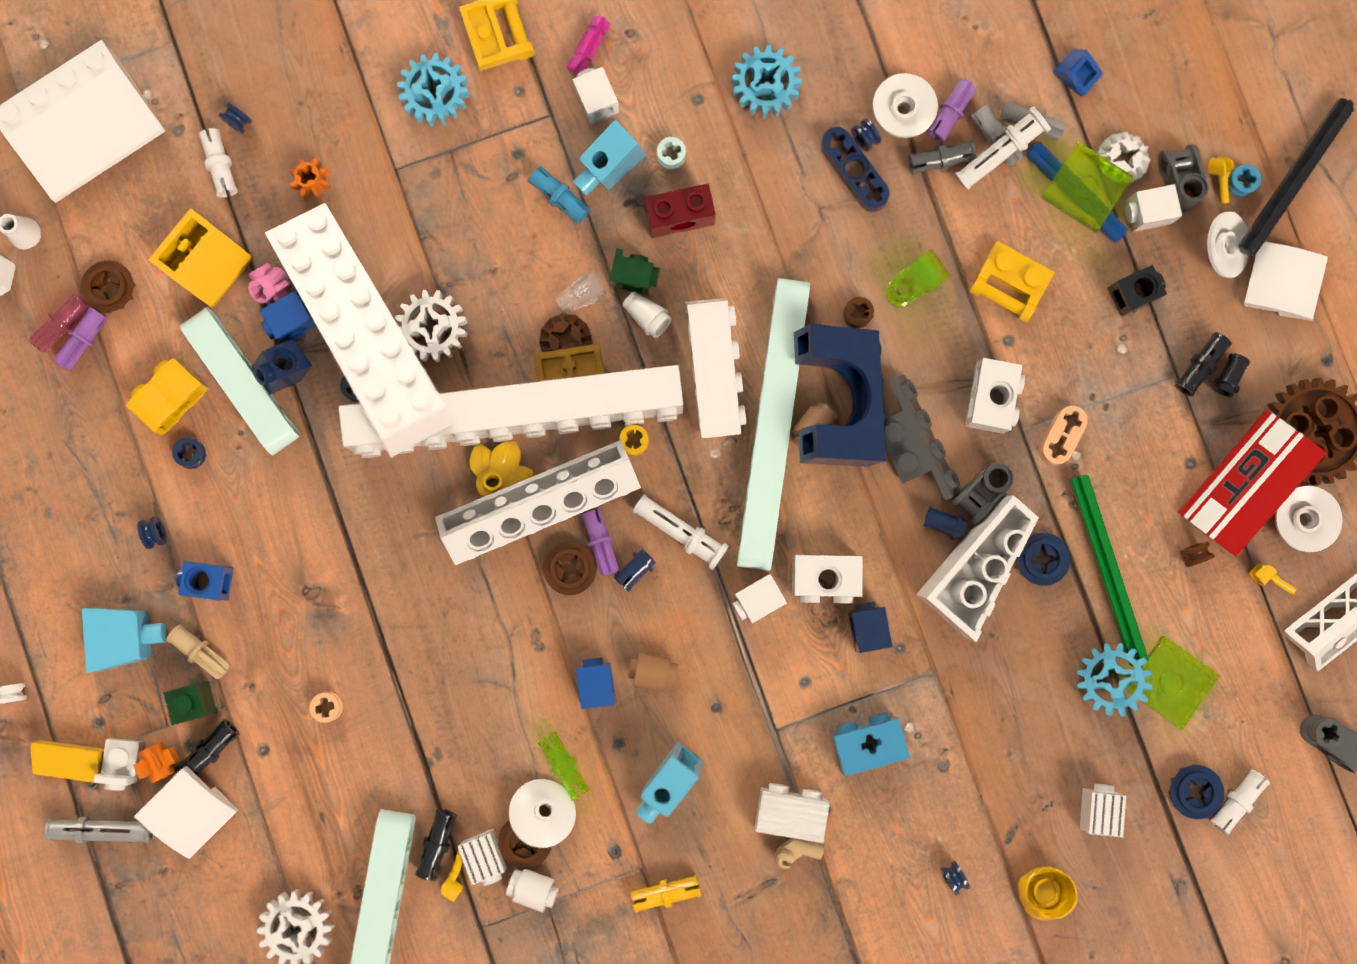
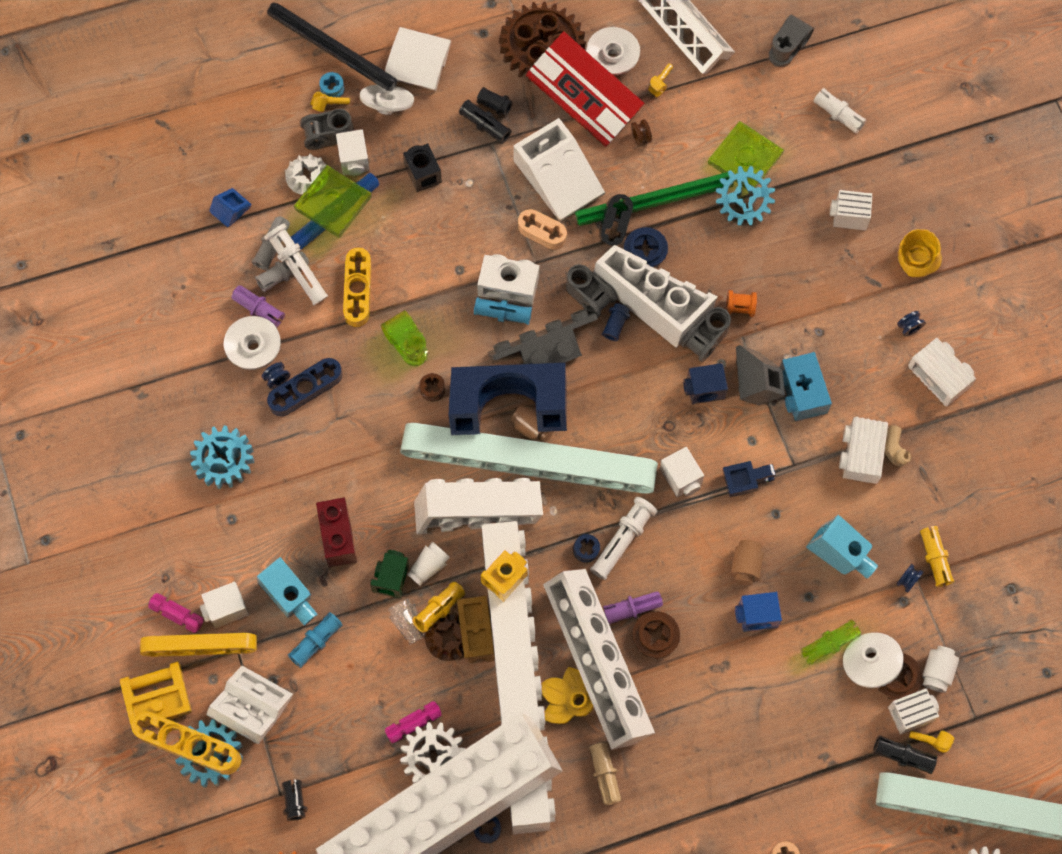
camera: 85 degrees left, 15 degrees down
(383, 182) = (294, 802): none -> black pin
(413, 512) = (605, 773): none -> tan axle
(432, 59) = (184, 746): none -> yellow beam
(470, 304) = (410, 722): none -> dark pink axle
(486, 129) = (249, 704): none -> white slope
(551, 70) = (198, 644): none -> yellow beam
(595, 326) = (438, 607): none -> yellow pin
(600, 389) = (502, 584): none -> yellow brick
(635, 569) = (657, 577): dark blue pin -> none
(638, 860) = (909, 578): none -> dark blue bush
(644, 440) = (542, 569): yellow bush -> none
(670, 480) = (577, 547): none -> dark blue bush
(676, 144) = (272, 538): light aqua bush -> none
(755, 669) = (743, 478): none -> dark blue plate
(846, 572) = (659, 433): white brick -> none
(880, 690) = (758, 377): none -> dark grey slope
(894, 913) = (942, 371): none -> white brick
(931, 629) = (704, 337): none -> dark grey piece
(942, 157) = (299, 315): dark grey pin -> none
(952, 412) = (502, 310): none -> dark azure pin
(974, 672) = (741, 303): none -> orange bush
(1004, 230) = (362, 297): none -> yellow beam
(1016, 273) = (403, 259): yellow plate -> none
(1079, 514) = (609, 218): none -> black beam
(1140, 452) = (557, 169): none -> white slope
(1211, 794) = (833, 131): dark blue gear -> none

